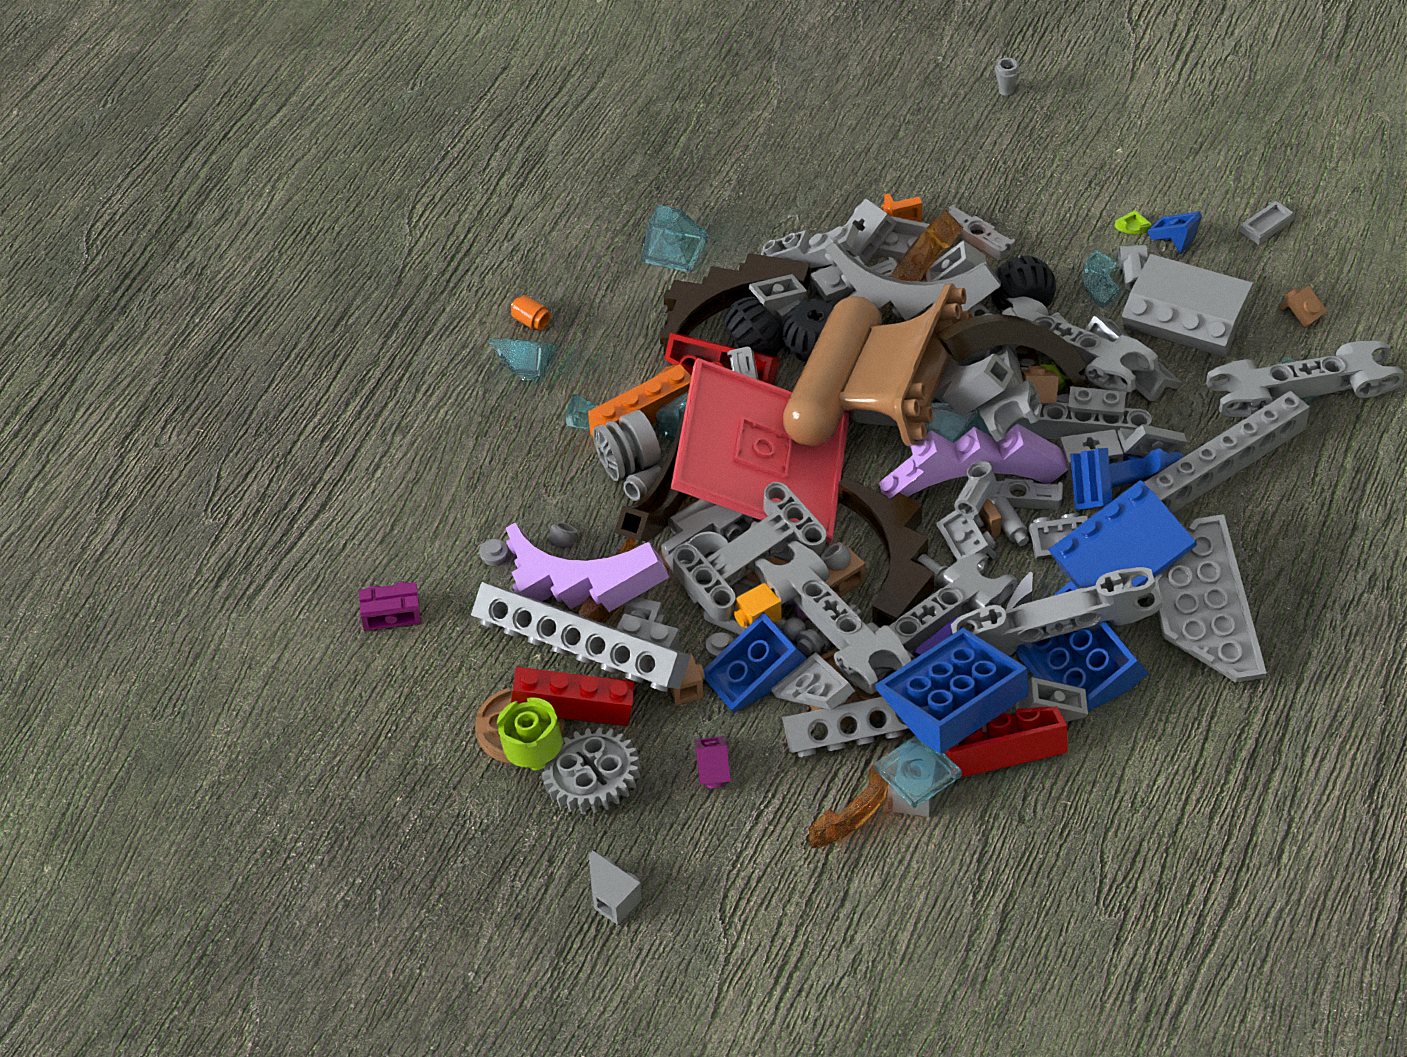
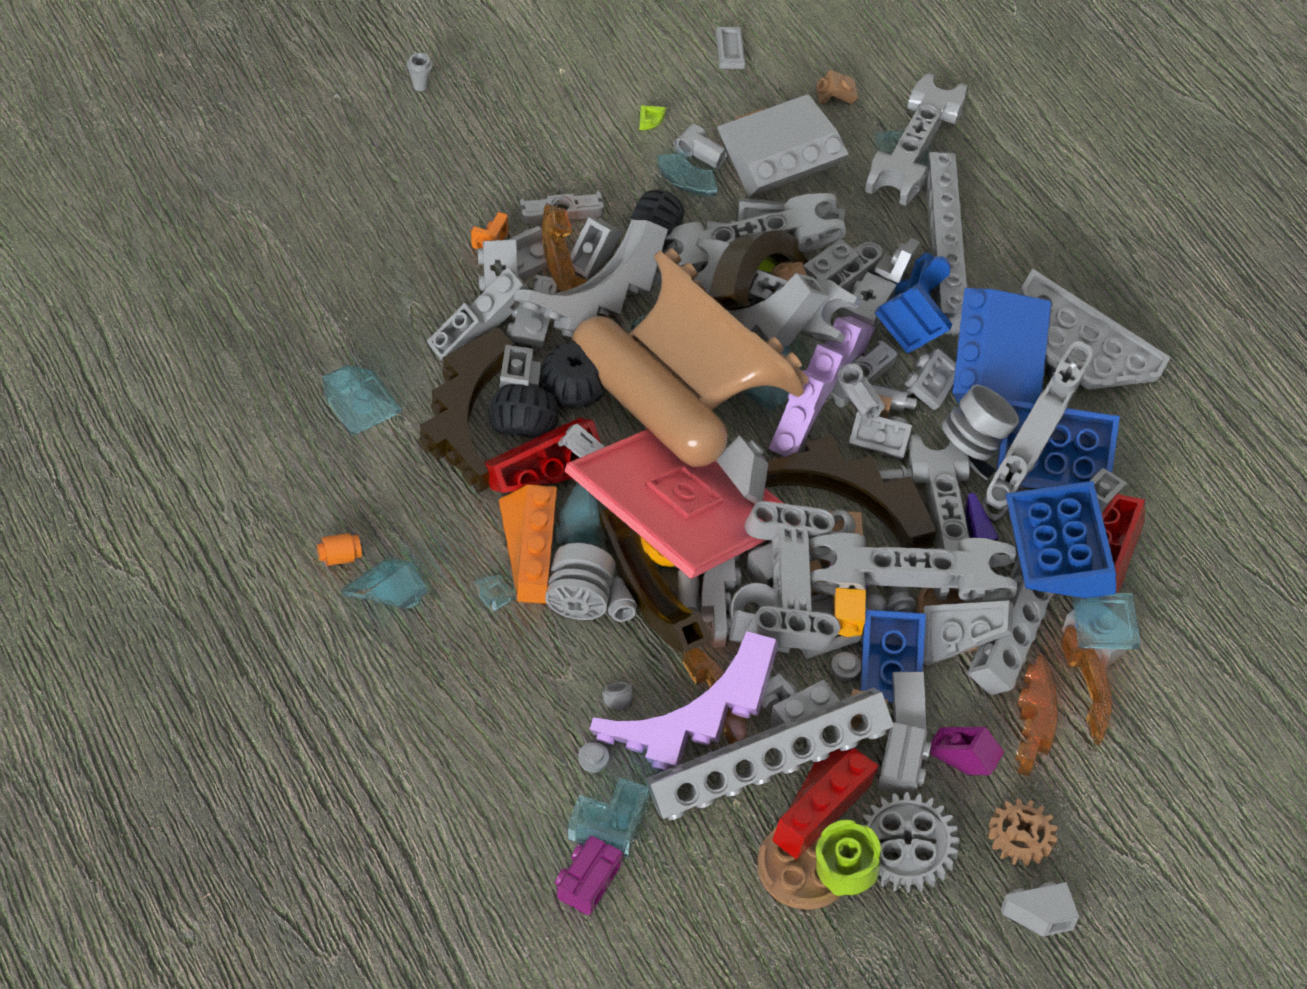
camera: 60 degrees left, 5 degrees up
(444, 591) = (613, 822): none -> clear light blue brick
(664, 725) = (903, 759): none -> light grey brick
(669, 836) = (1022, 832): none -> medium nougat gear
(720, 699) = (909, 699): none -> light grey tile
(801, 784) = (1039, 713): none -> clear orange slope
(826, 471) = (745, 468): none -> light grey slope
(1027, 574) = (980, 422): none -> light grey wheel
(1179, 228) = (692, 94): blue slope -> none

